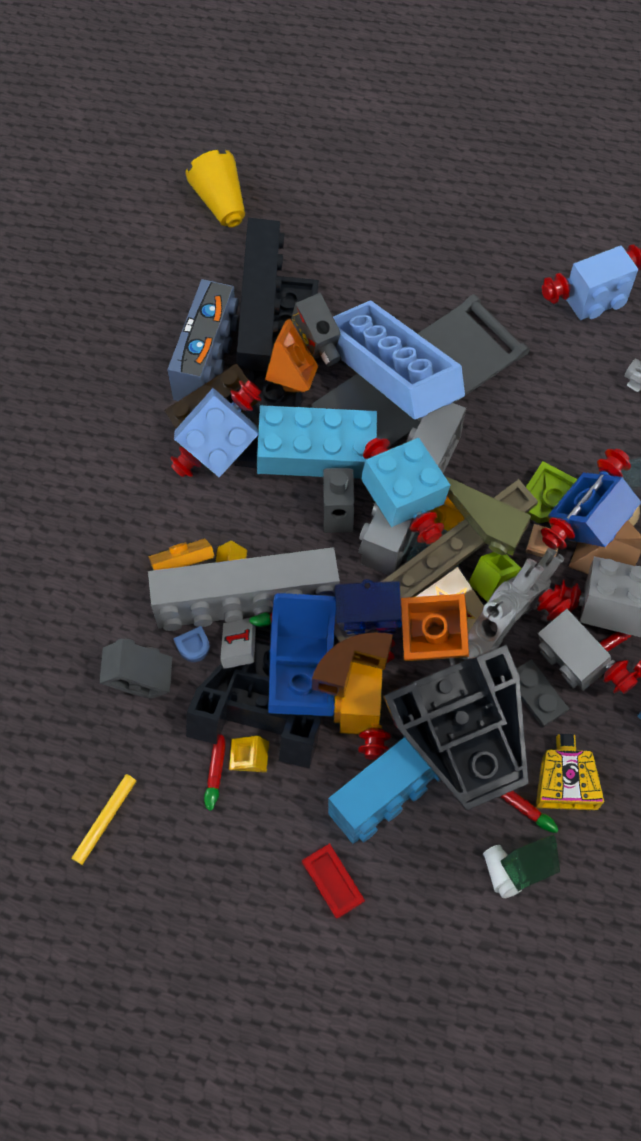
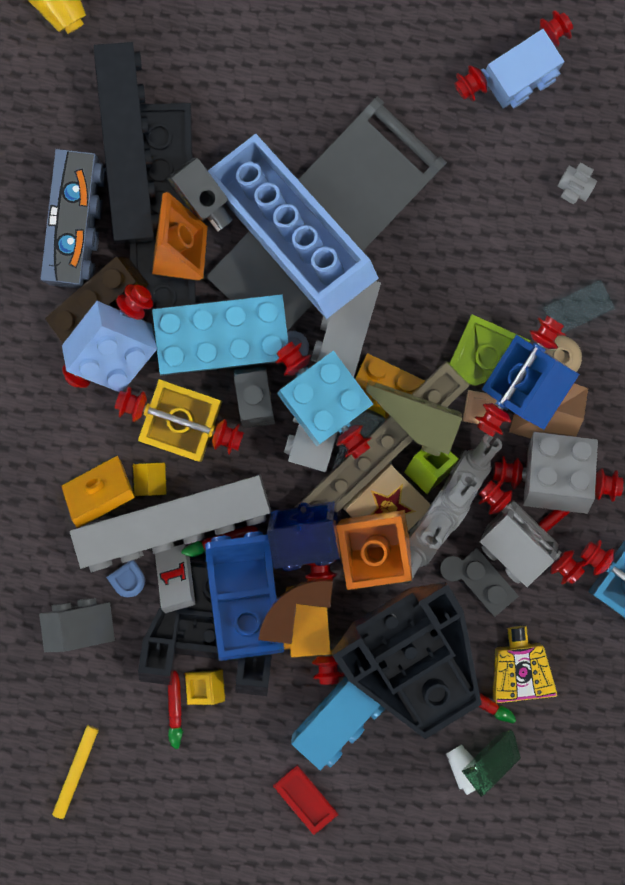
camera: 10 degrees left, 25 degrees up
(267, 507) = (179, 420): none -> yellow brick

